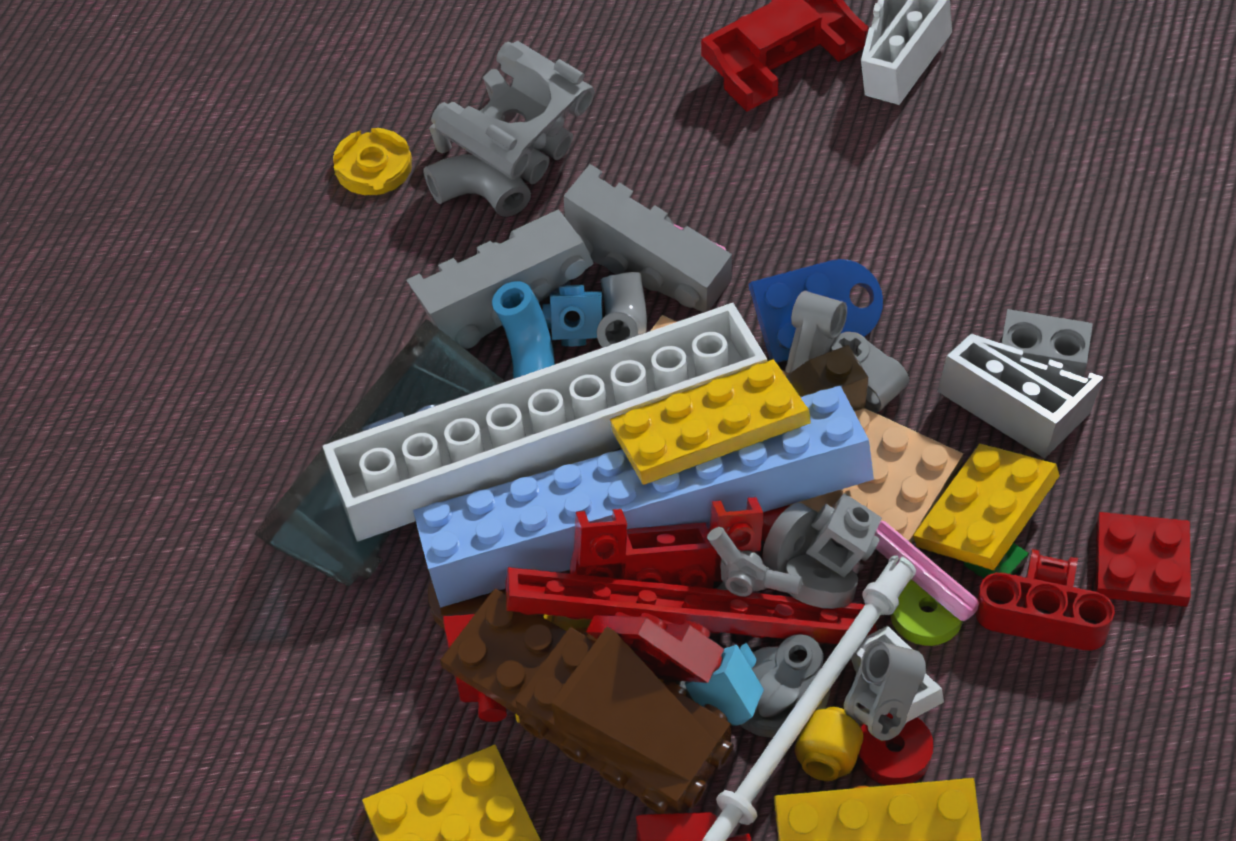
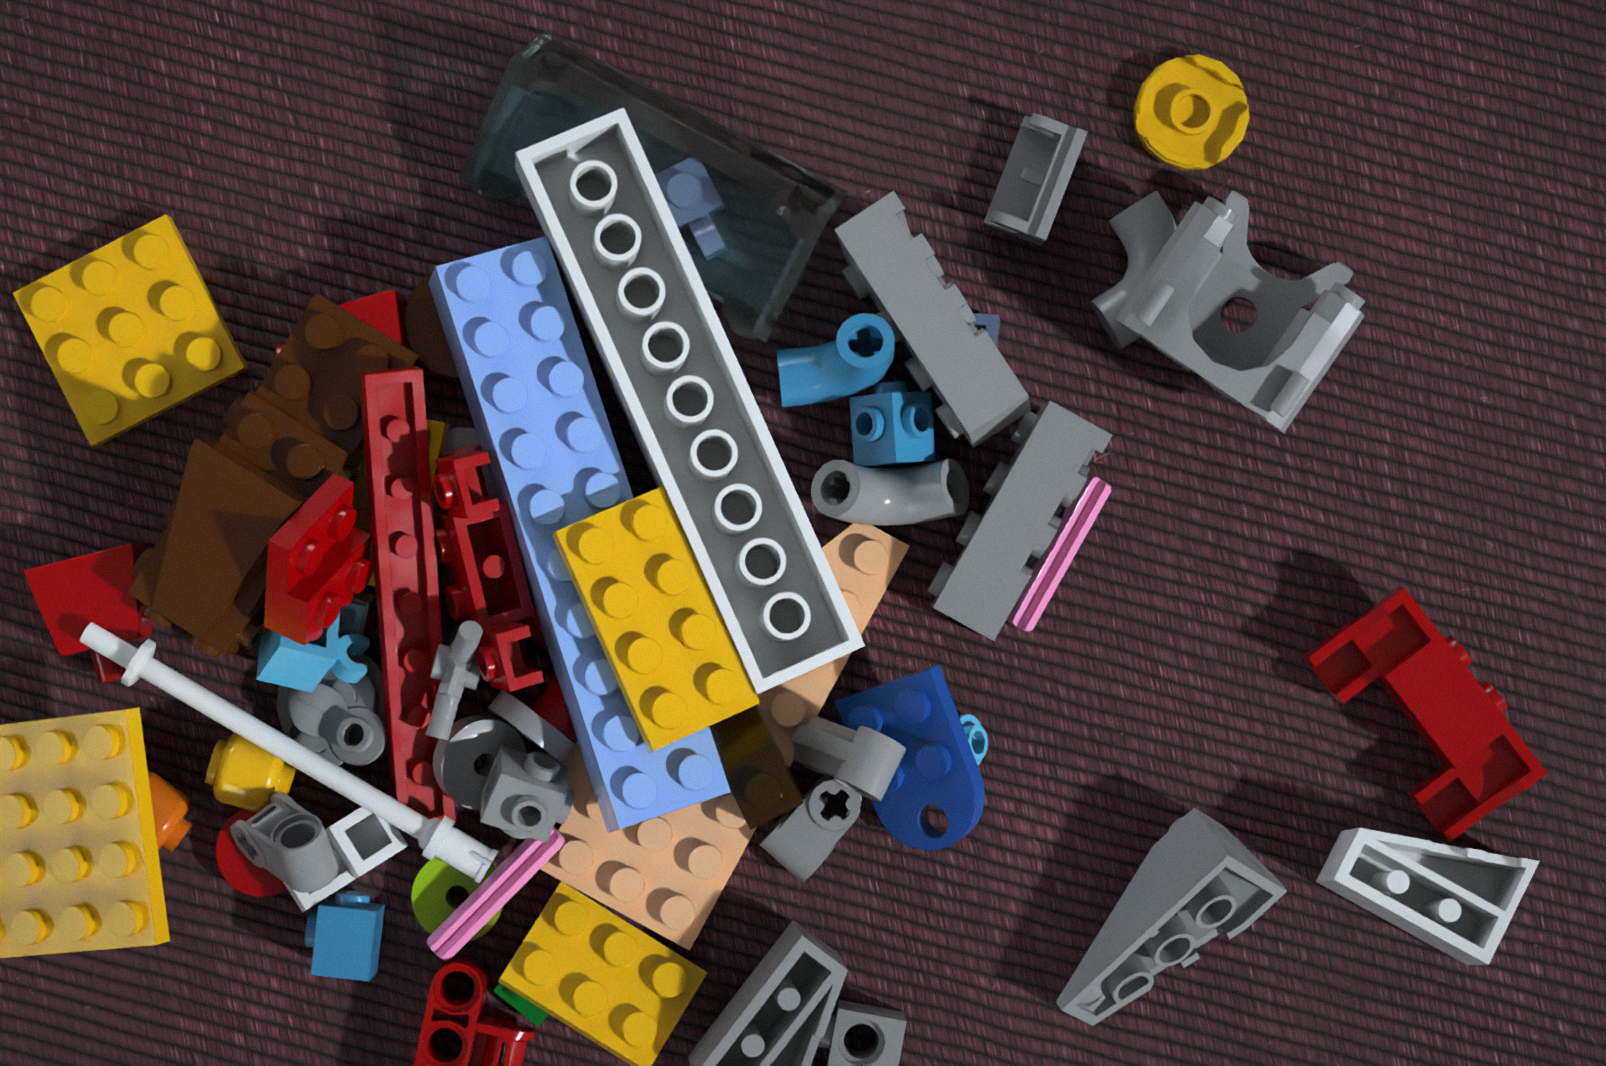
camera: 85 degrees right, 35 degrees up
(407, 237) = (1035, 178): none -> light grey hinge
(907, 161) = (1180, 898): none -> light grey wedge
(964, 672) = (345, 936): none -> dark azure brick

